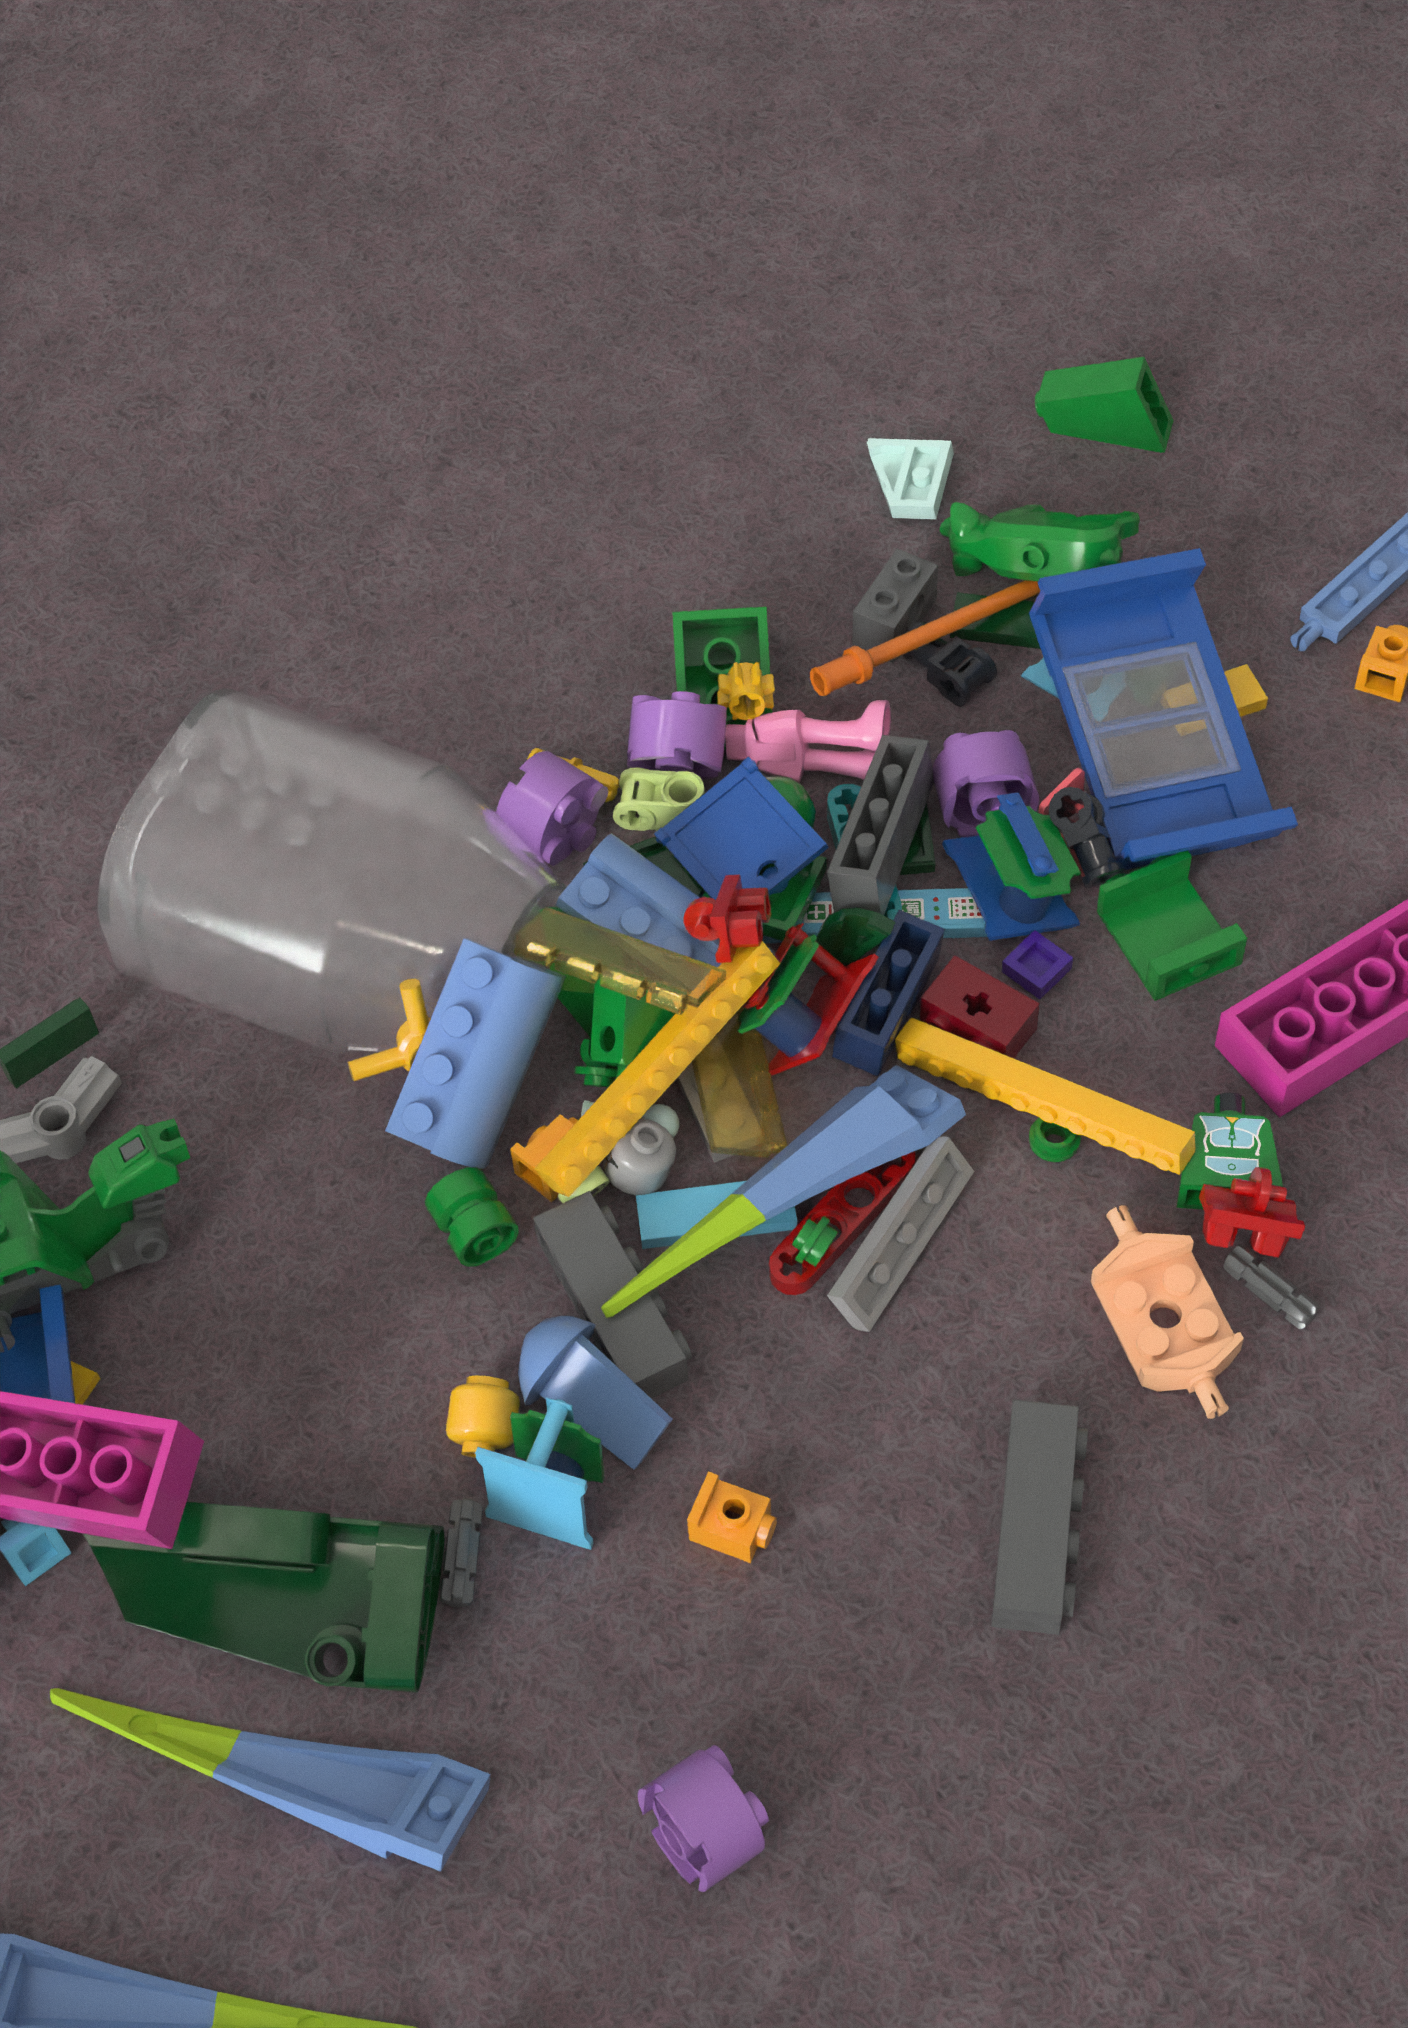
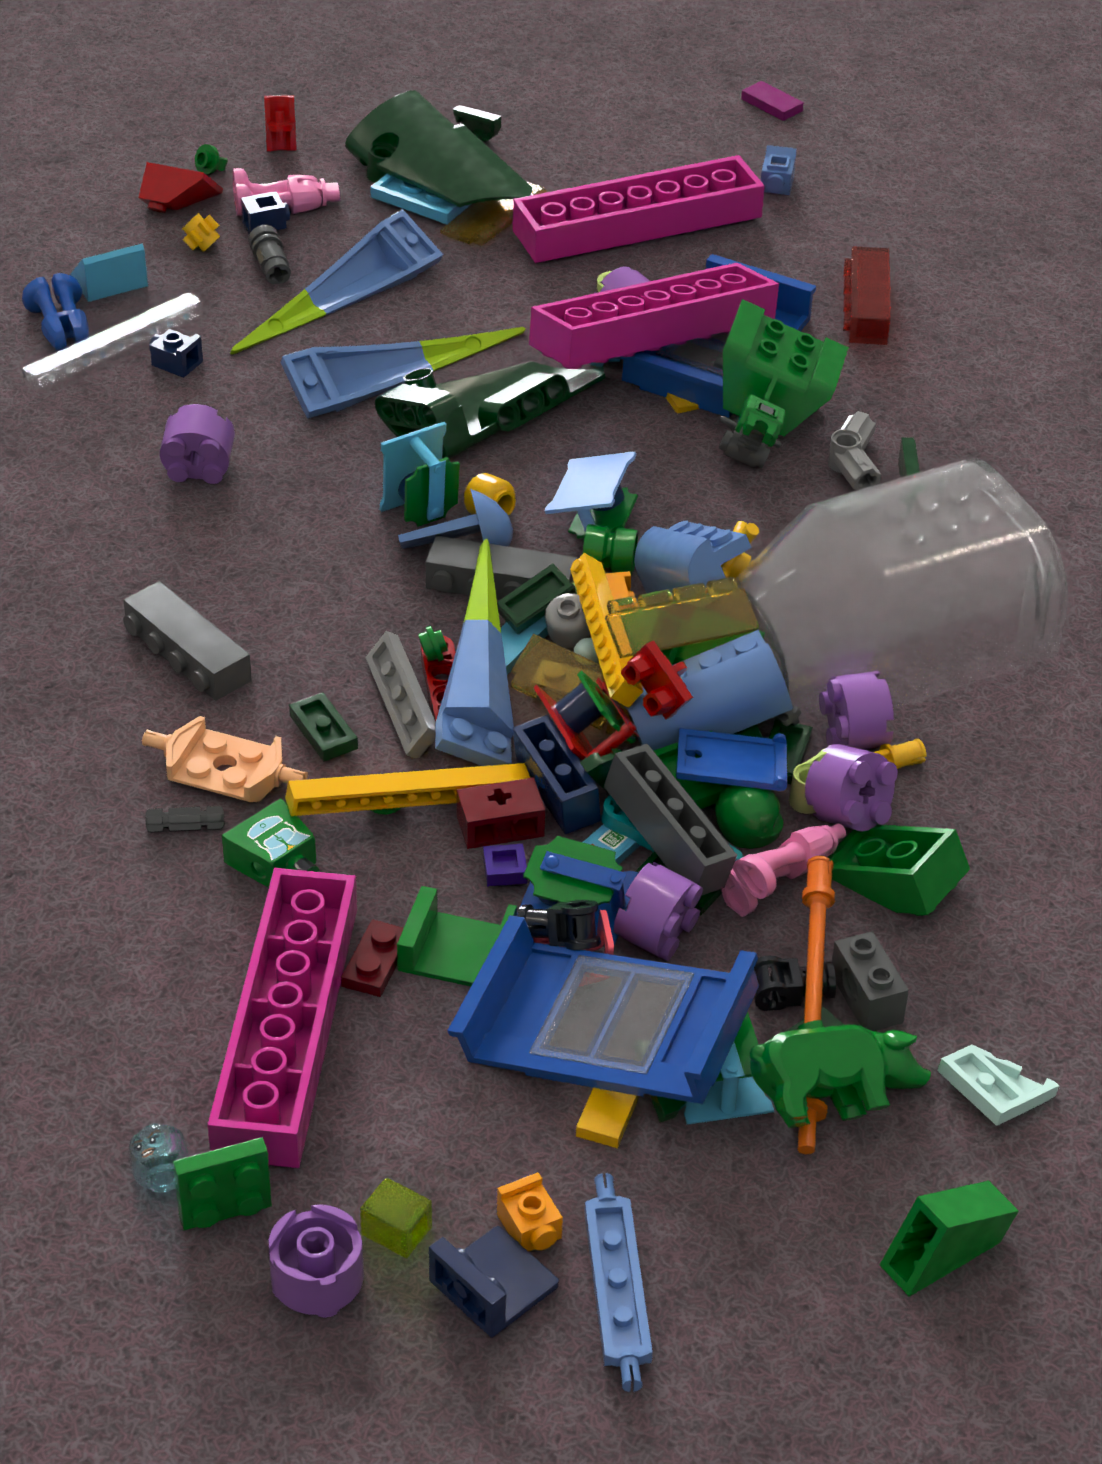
camera: 125 degrees right, 15 degrees down
(397, 1282) = (595, 492): none -> light blue piece
(640, 1204) = (530, 600): none -> dark green tile
(730, 1536) = (328, 546): light orange brick -> none
(746, 691) = (855, 837): yellow gear -> none
(1019, 1270) = (323, 726): none -> dark green plate
(1238, 980) = (373, 959): none -> dark red plate
(1254, 1207) = (225, 811): red hips -> none

